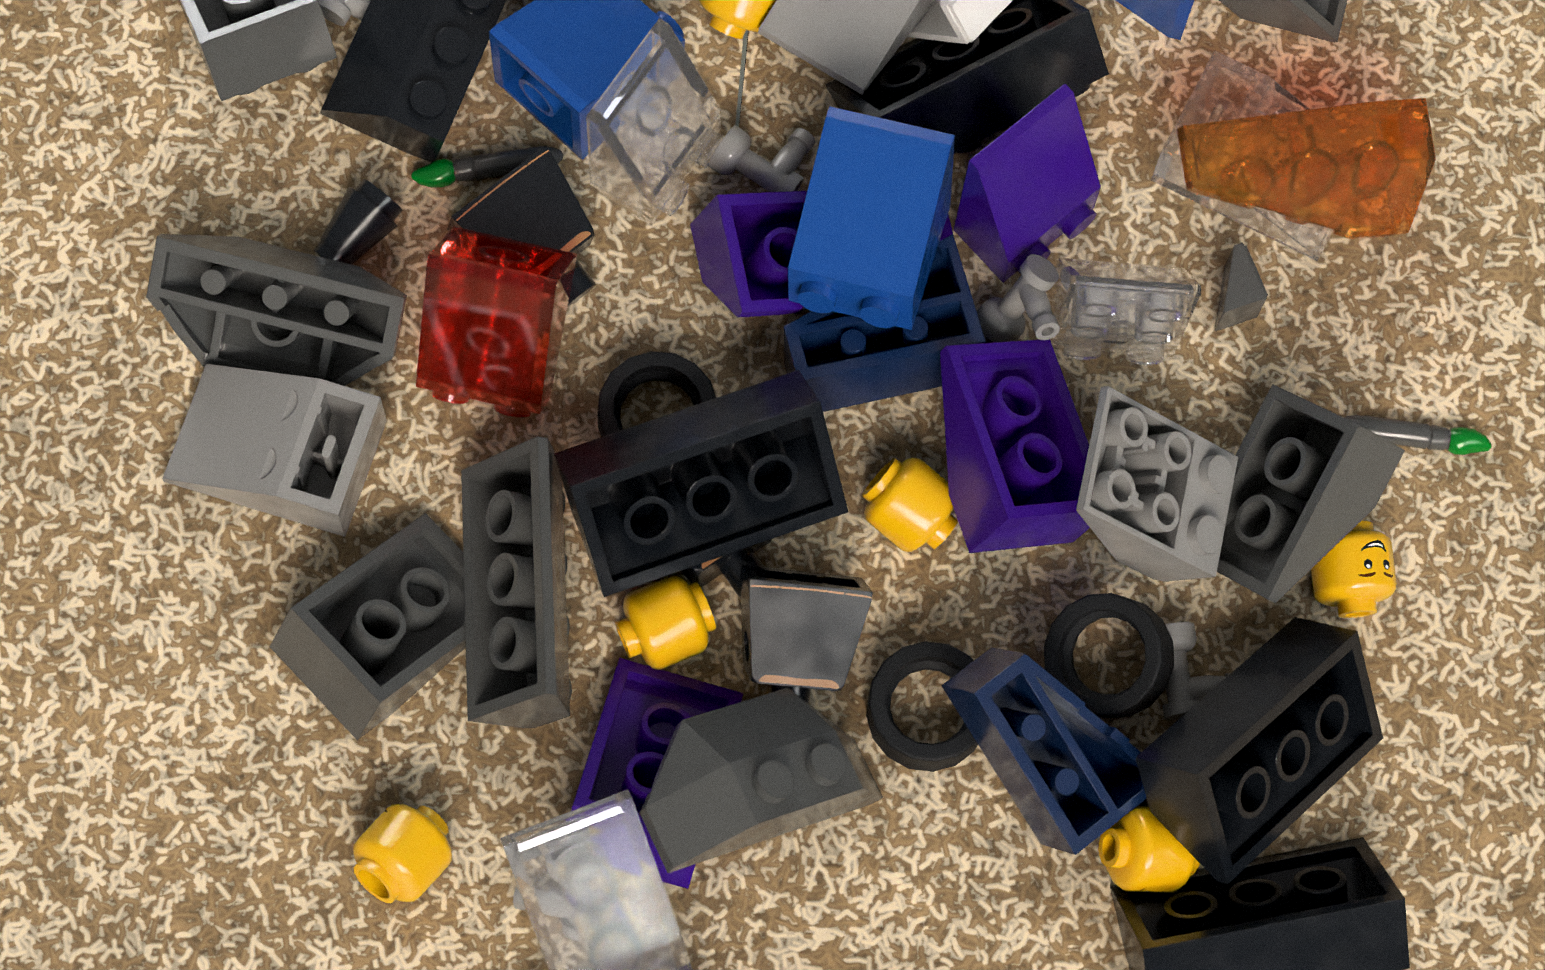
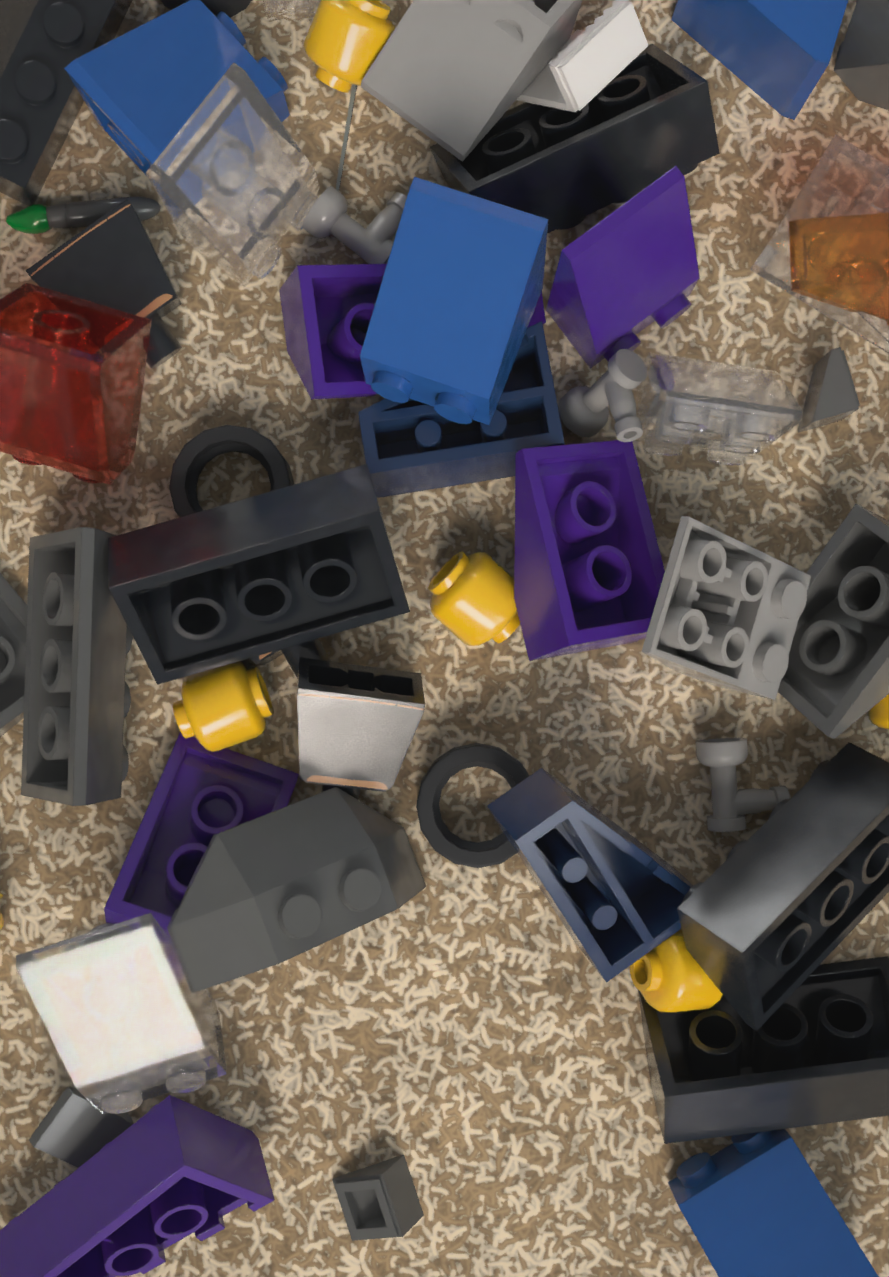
camera: 10 degrees right, 15 degrees up
(1153, 632) = (621, 799): black tyre -> none

